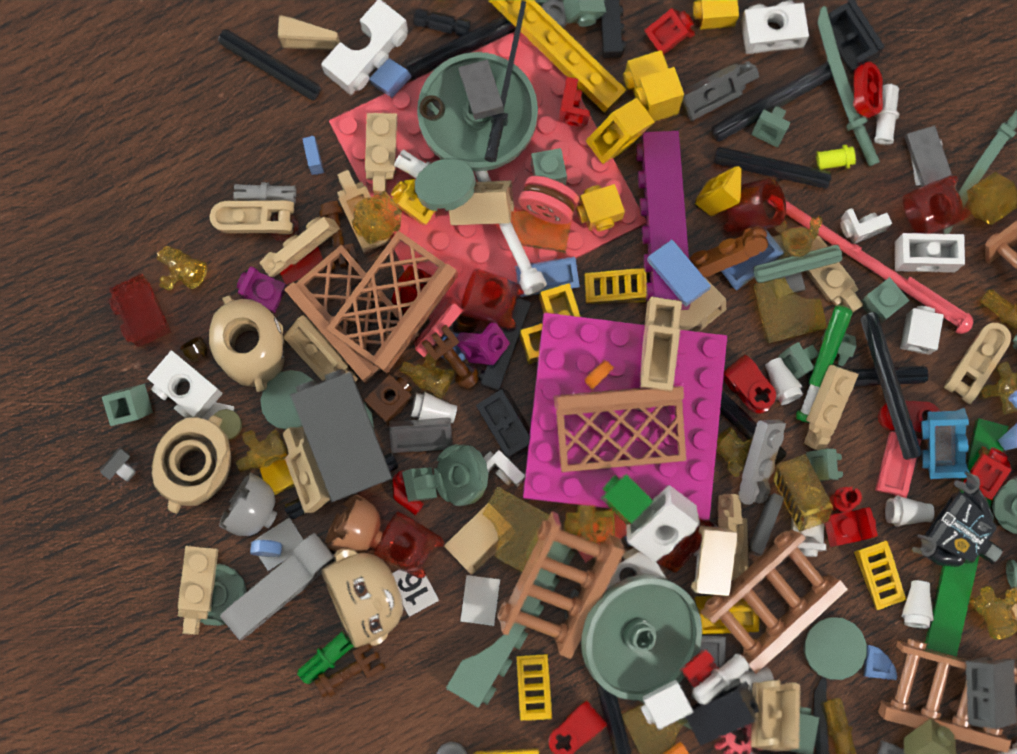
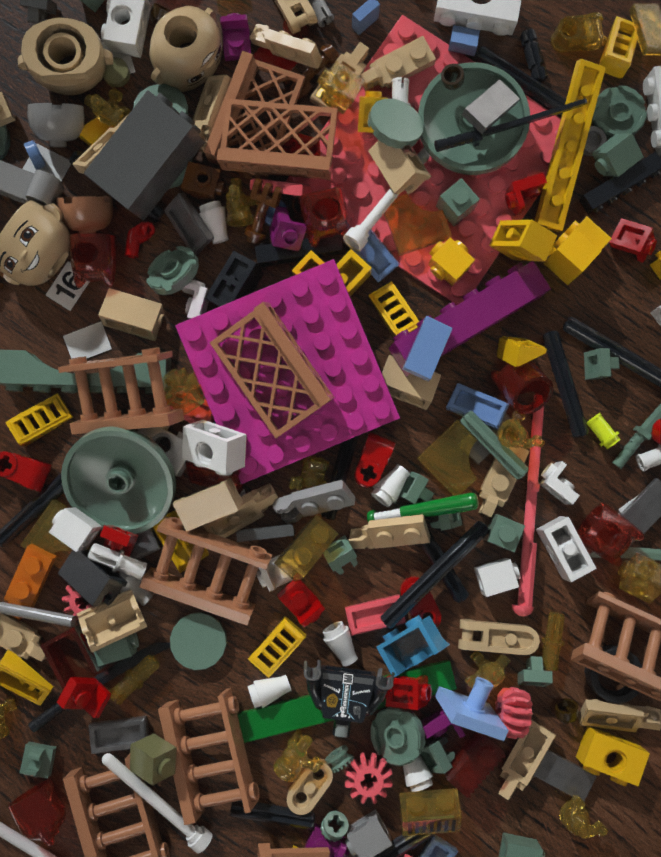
camera: 60 degrees right, 5 degrees up
(421, 484) = (149, 244): sand green tile -> none
(515, 526) = (152, 330): clear yellow tile -> none
(548, 200) = (430, 212): coral head -> none
(598, 374) = (304, 327): orange tile -> none
(625, 498) = (215, 404): green brick -> none
(660, 344) = (356, 364): tan slope -> none
(717, 89) = (605, 303): dark grey hinge -> none
(731, 252) = (470, 383): dark orange hinge -> none
(845, 499) = (319, 592): red pin -> none
(878, 664) = (204, 682): medium blue tile -> none
(991, 692) = (222, 787): dark grey hinge -> none

